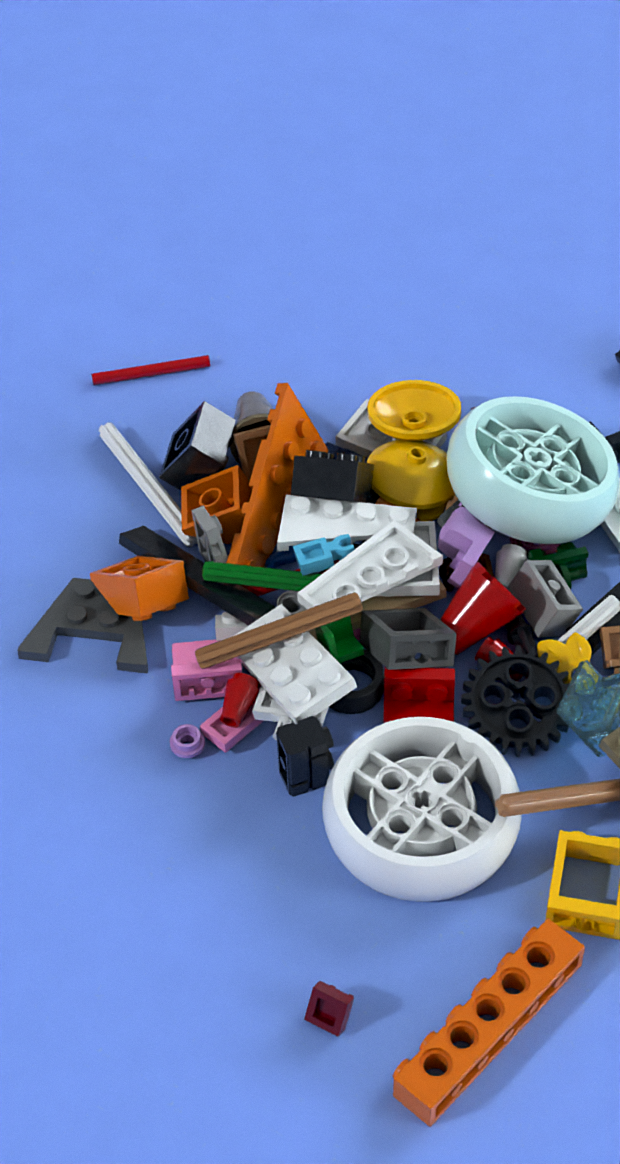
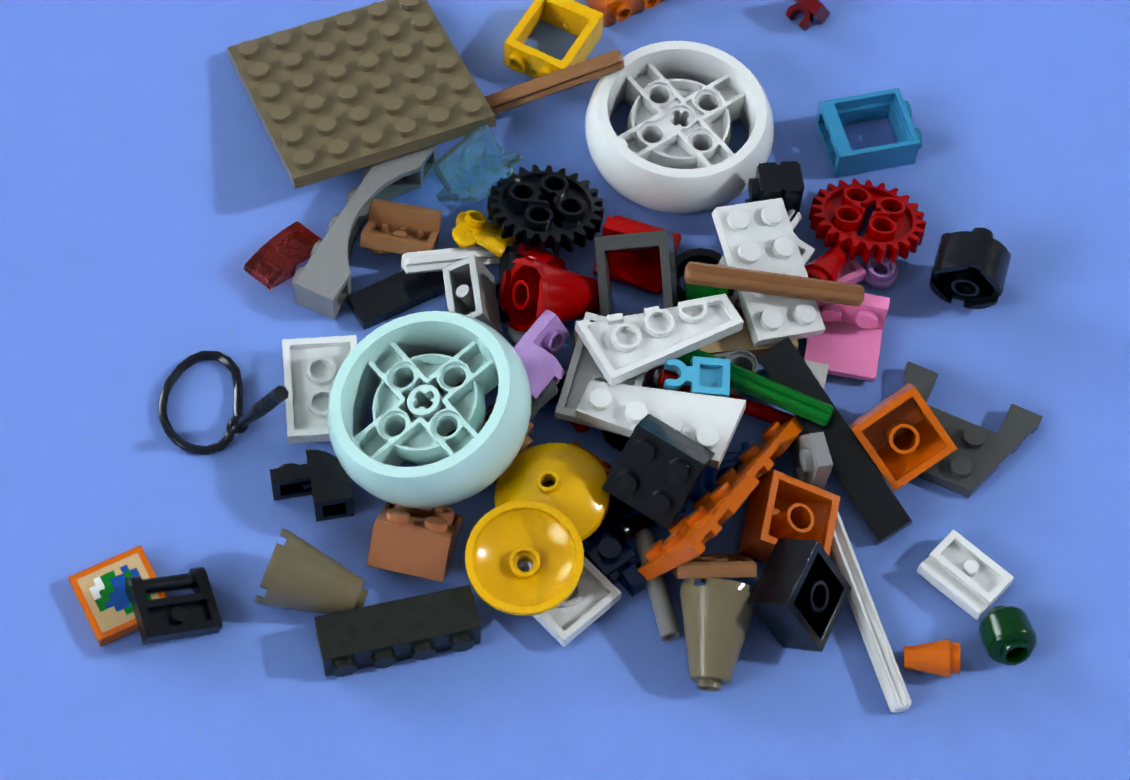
camera: 170 degrees left, 10 degrees up
(30, 482) = (1007, 635): none -> dark green head
(69, 518) = (965, 574): none -> white plate
(85, 459) = (934, 657): none -> orange cone
(100, 739) = (970, 268): none -> black brick
(211, 847) = (861, 108): none -> dark azure window
(241, 771) = (892, 228): none -> red gear
(498, 374) = (398, 631): none -> pearl dark grey brick
(569, 383) = (309, 580): none -> dark tan cone

